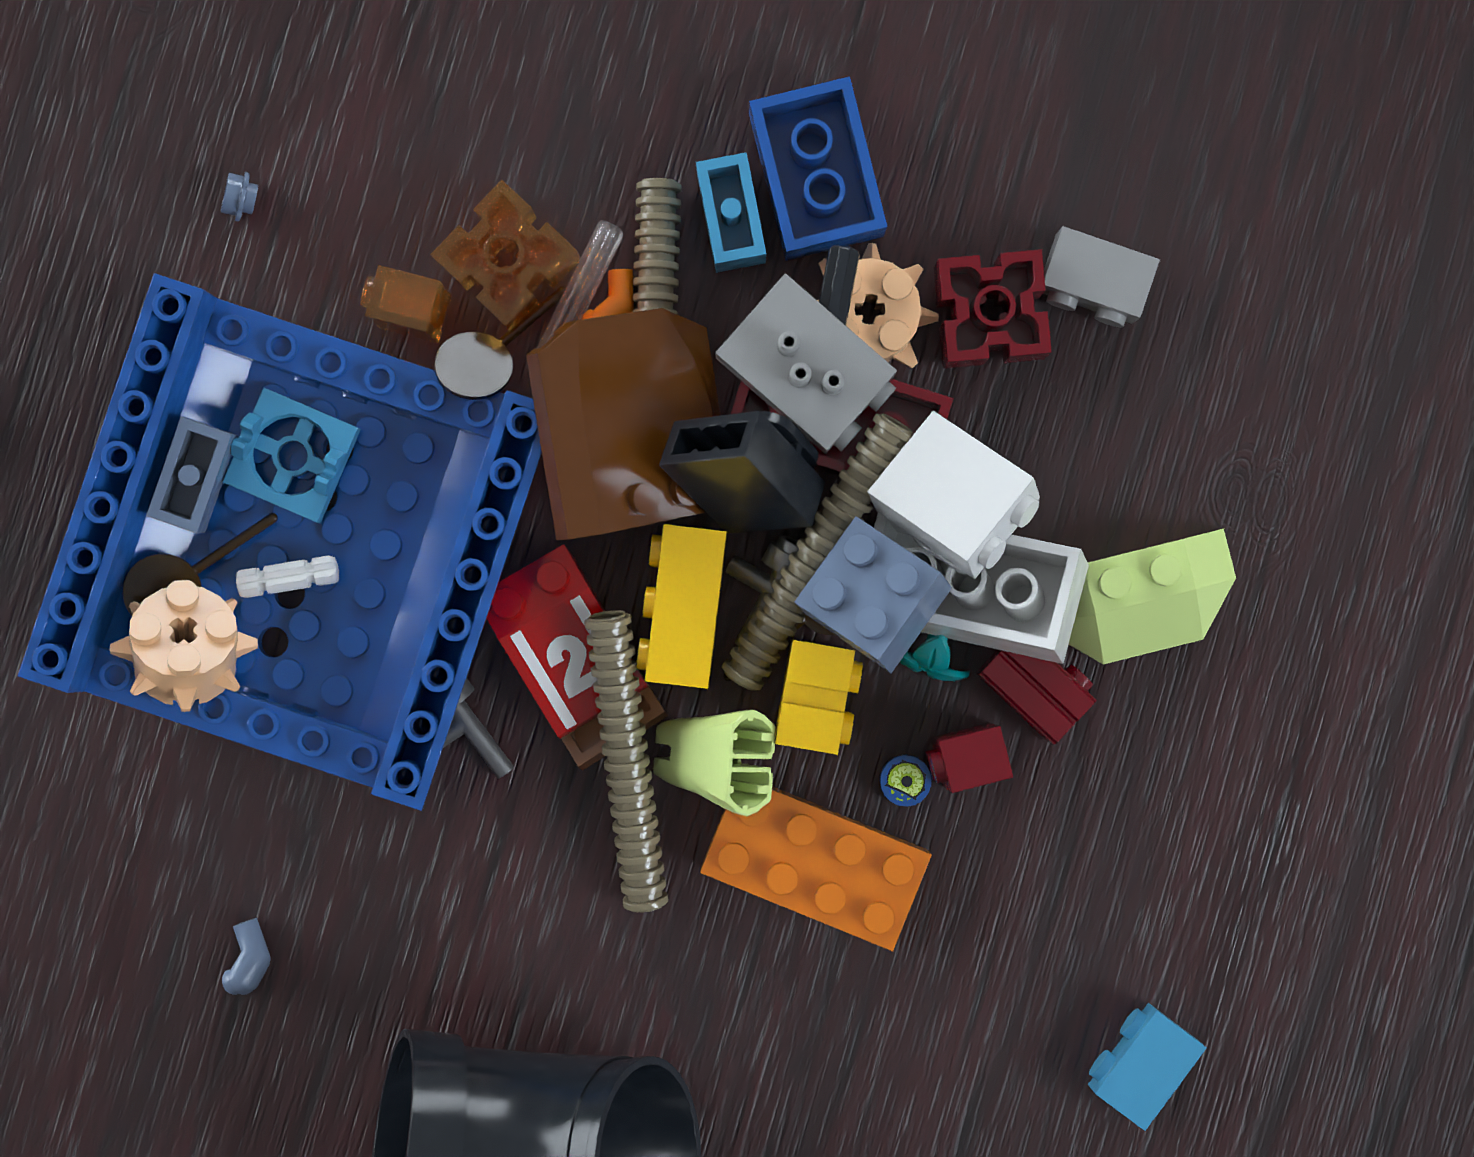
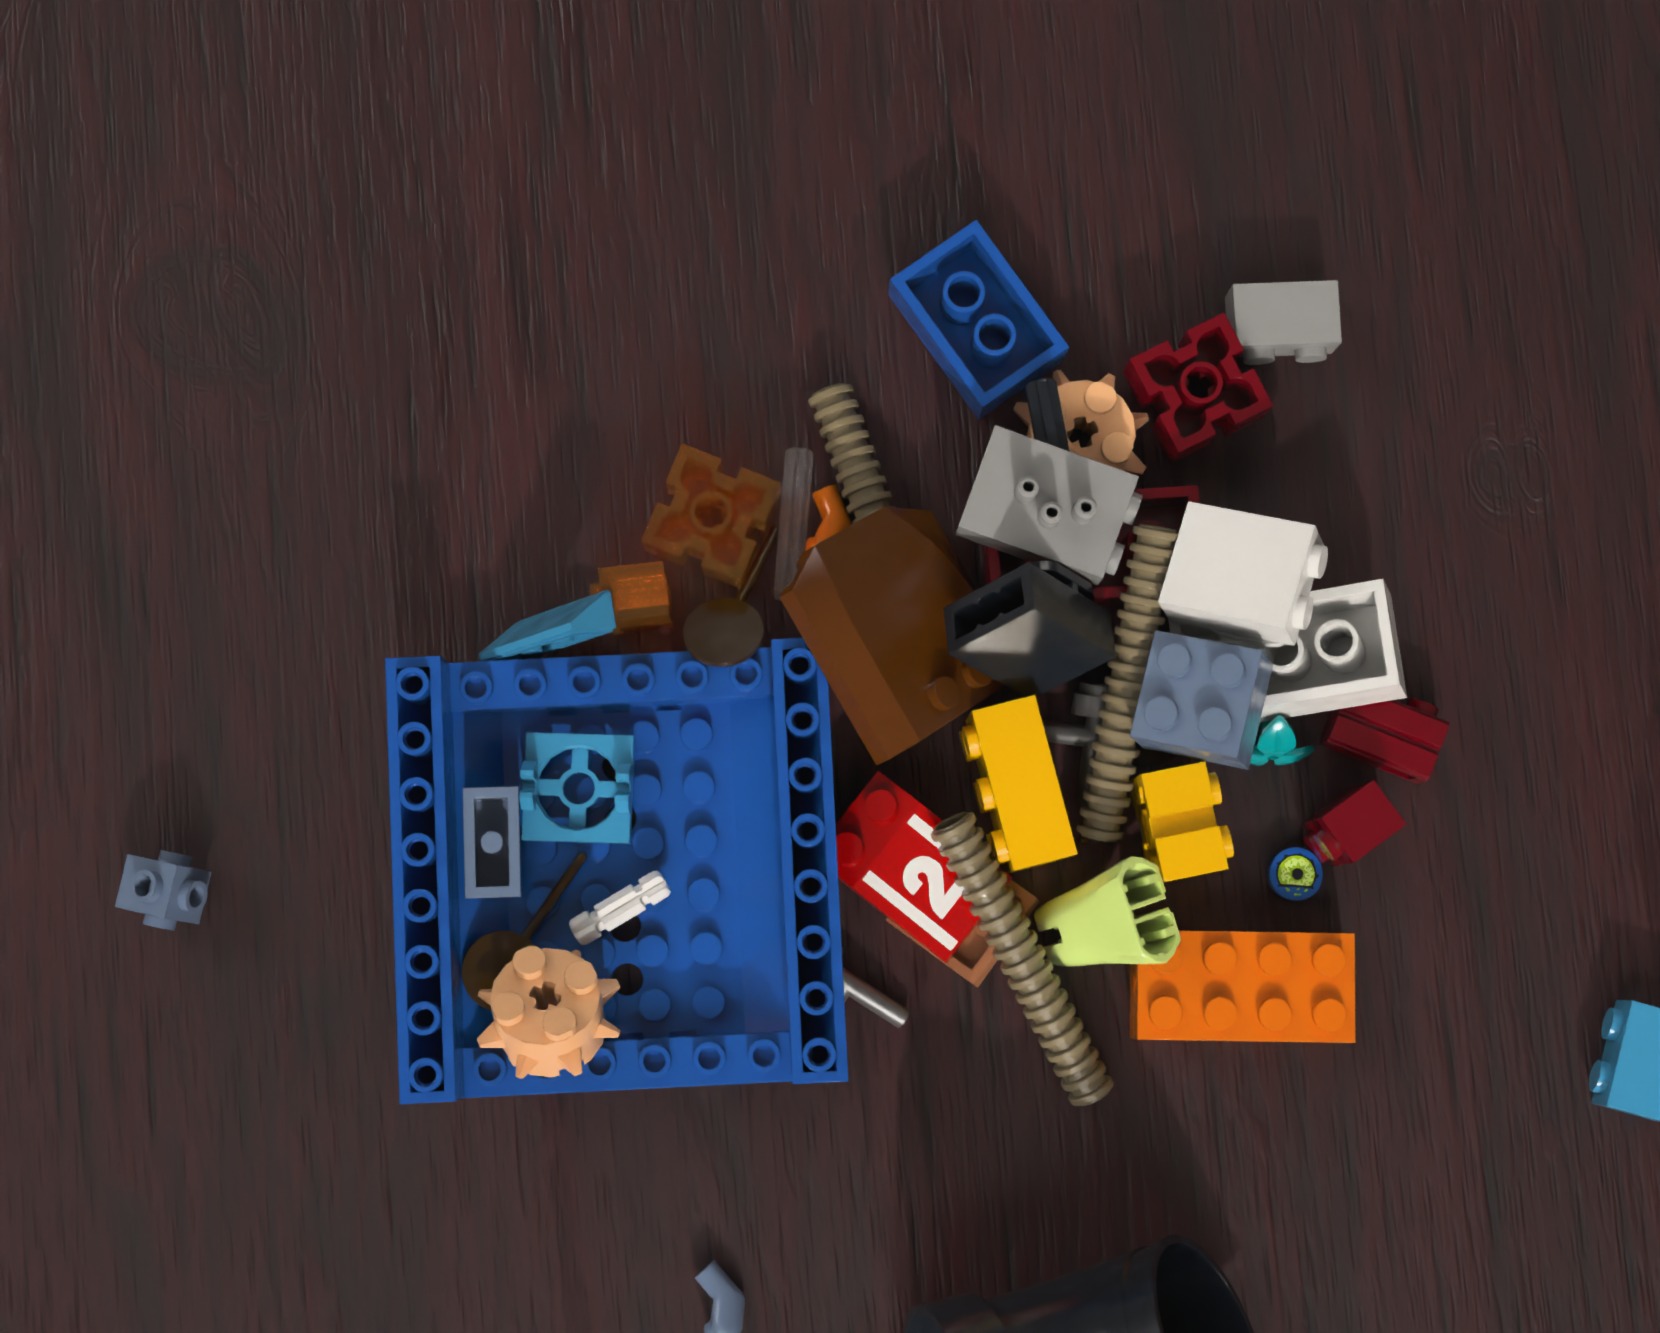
camera: 25 degrees left, 5 degrees down
(239, 195) = (427, 558): sand blue plate -> none
(321, 304) = (554, 629): none -> dark azure slope
(731, 212) = (911, 392): dark azure brick -> none
(1152, 597) = (1462, 604): yellowish green wedge -> none

